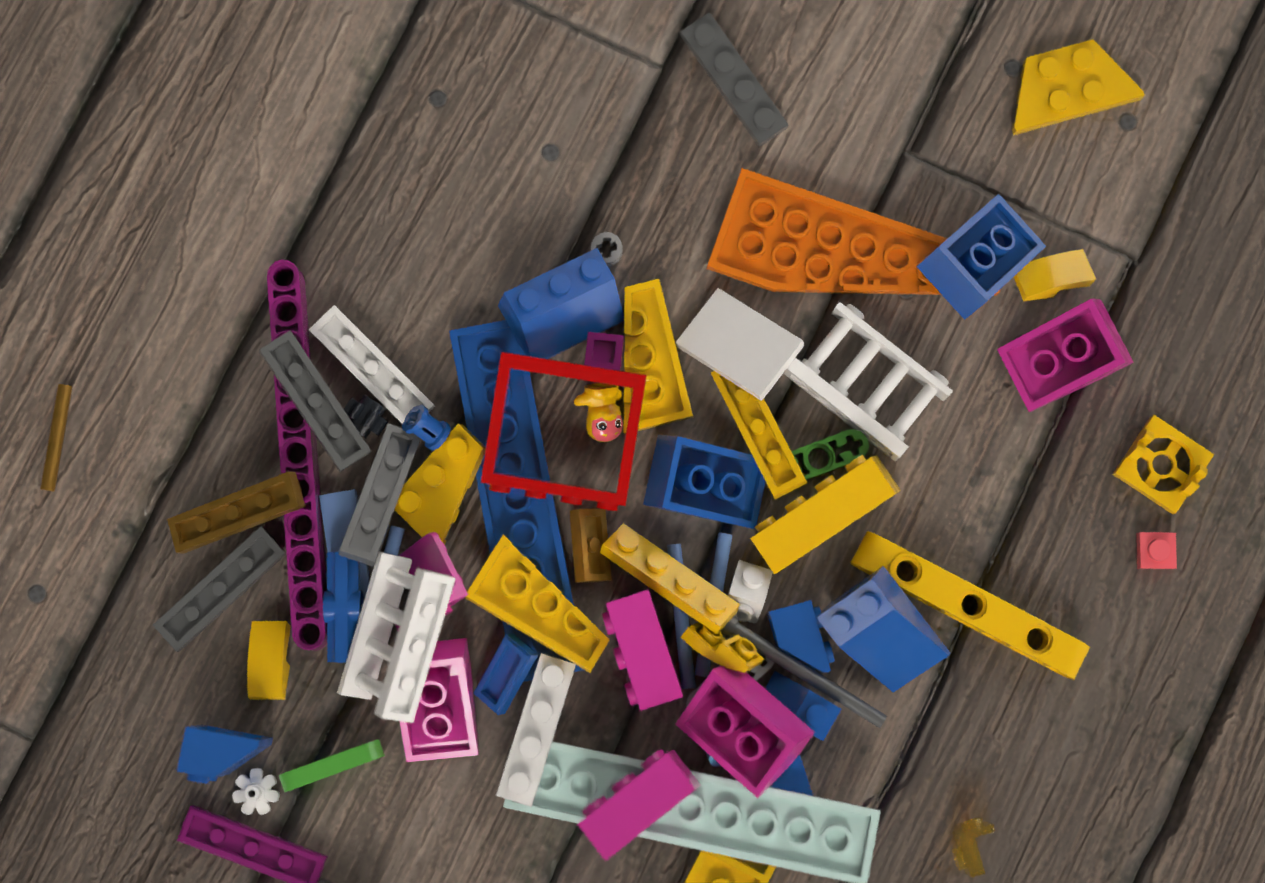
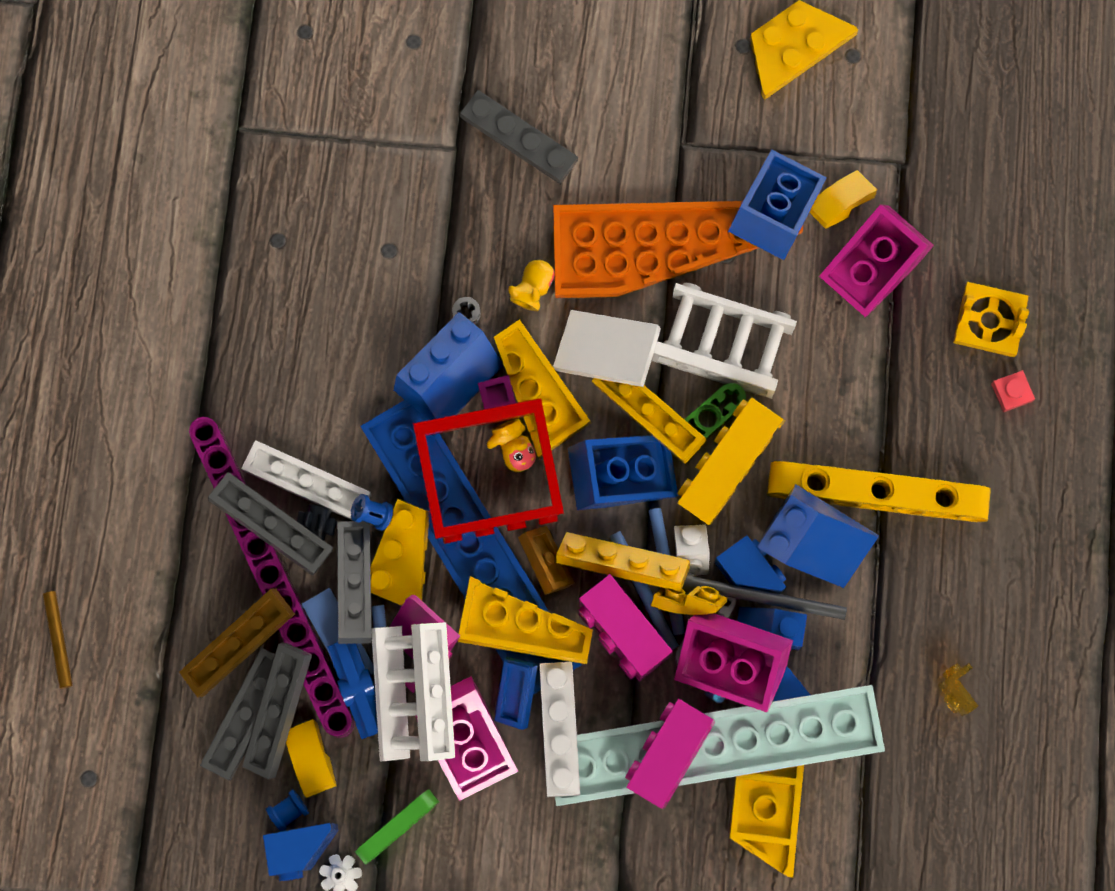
camera: 20 degrees left, 5 degrees down
(225, 705) = (287, 810): none -> blue bush
(251, 599) = (277, 710): none -> dark grey plate
(689, 246) = (535, 283): none -> yellow animal

